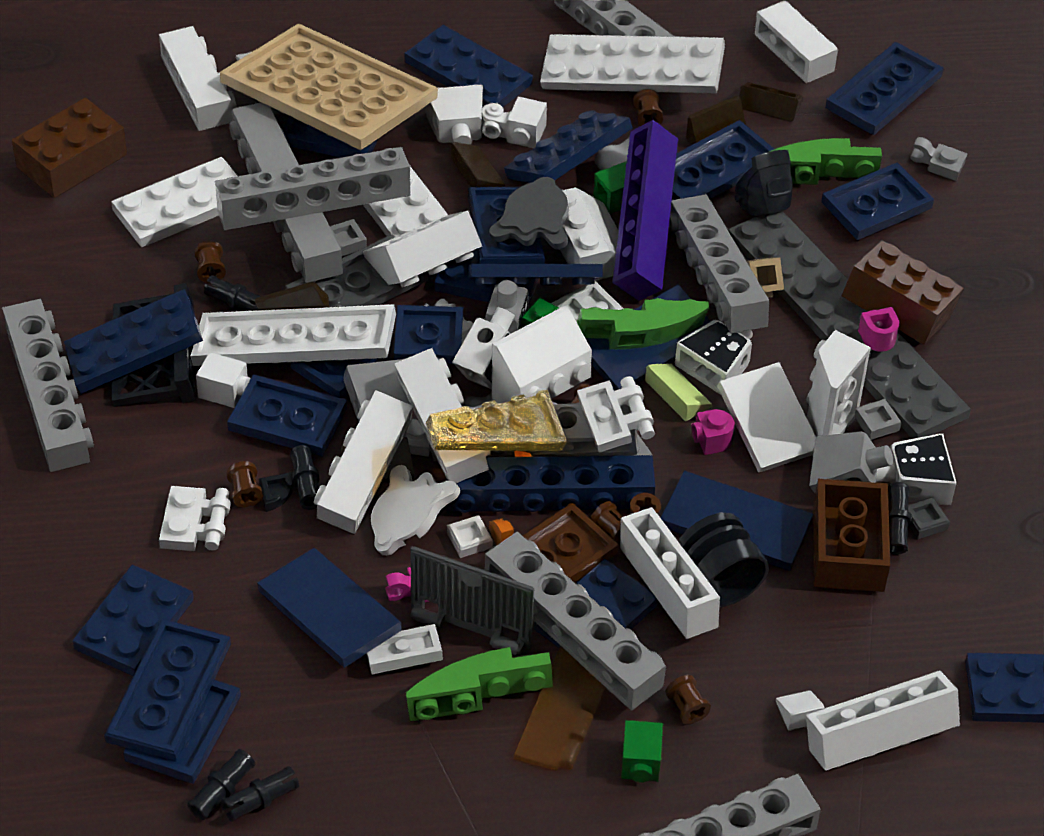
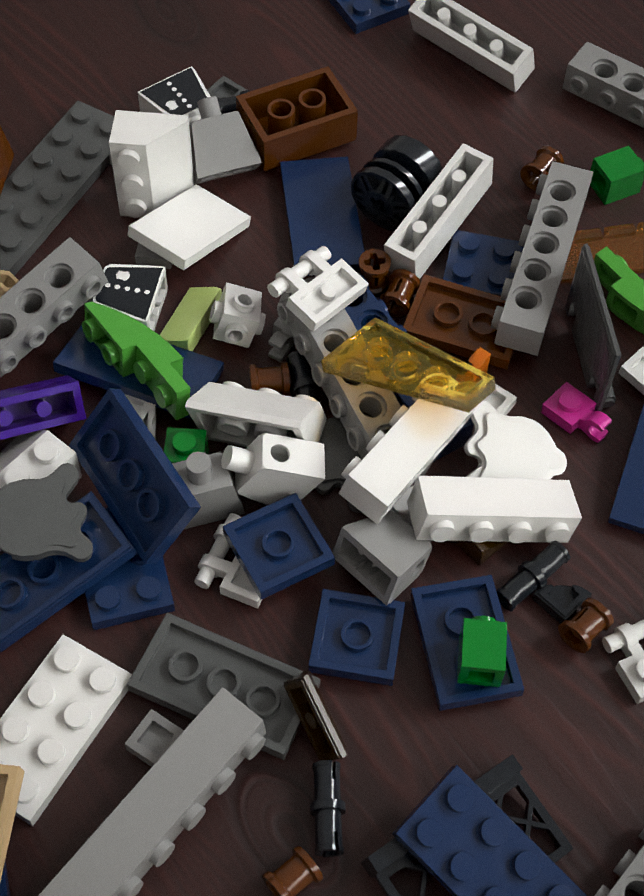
camera: 120 degrees left, 10 degrees up
(222, 379) = (468, 734): white brick -> none
(265, 397) = (482, 651): none -> green brick
(297, 334) = (365, 685): white plate -> none
(312, 188) = (151, 768): light grey brick -> none
(425, 249) = (146, 621): white slope -> none
(659, 401) = (237, 315): none -> white brick
(713, 430) = (230, 264): dark pink plate -> none
(796, 707) = (488, 102): white slope -> none
(879, 329) = (31, 169): dark pink plate -> none

